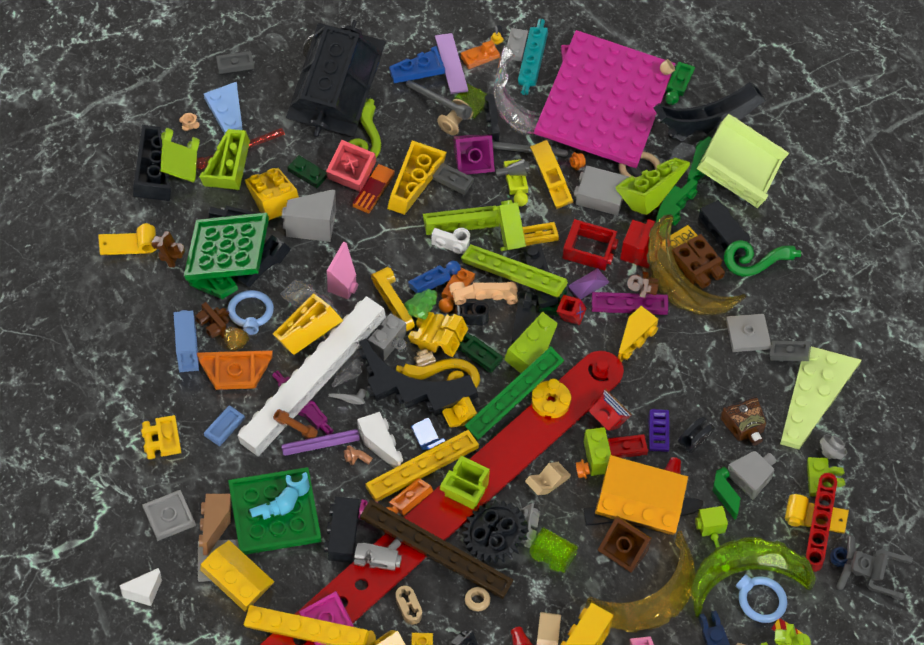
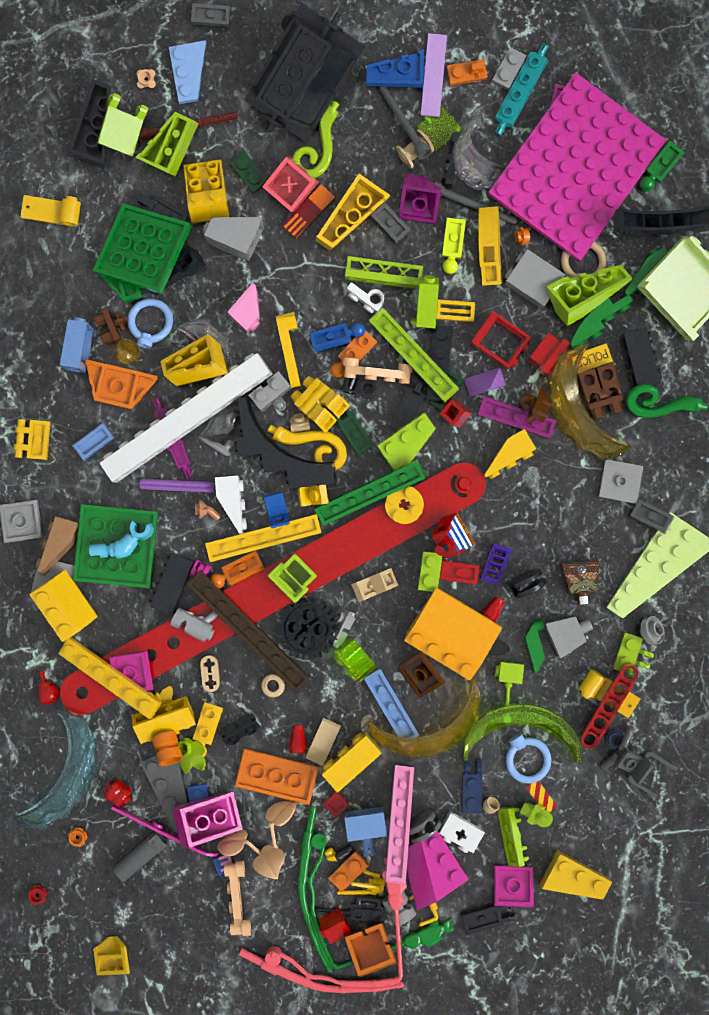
camera: 20 degrees right, 30 degrees up
(168, 248) = (85, 234): reddish brown hips -> none
(307, 431) = (143, 462): dark orange bar -> none
(421, 304) = (311, 367): bright green rock -> none
(498, 36) = (493, 55): arm -> none
(518, 168) = (458, 233): dark grey cone -> none
(582, 469) = (410, 584): orange plate -> none
(600, 580) = (390, 705): none -> medium blue plate
(667, 67) = (653, 149): tan hinge -> none

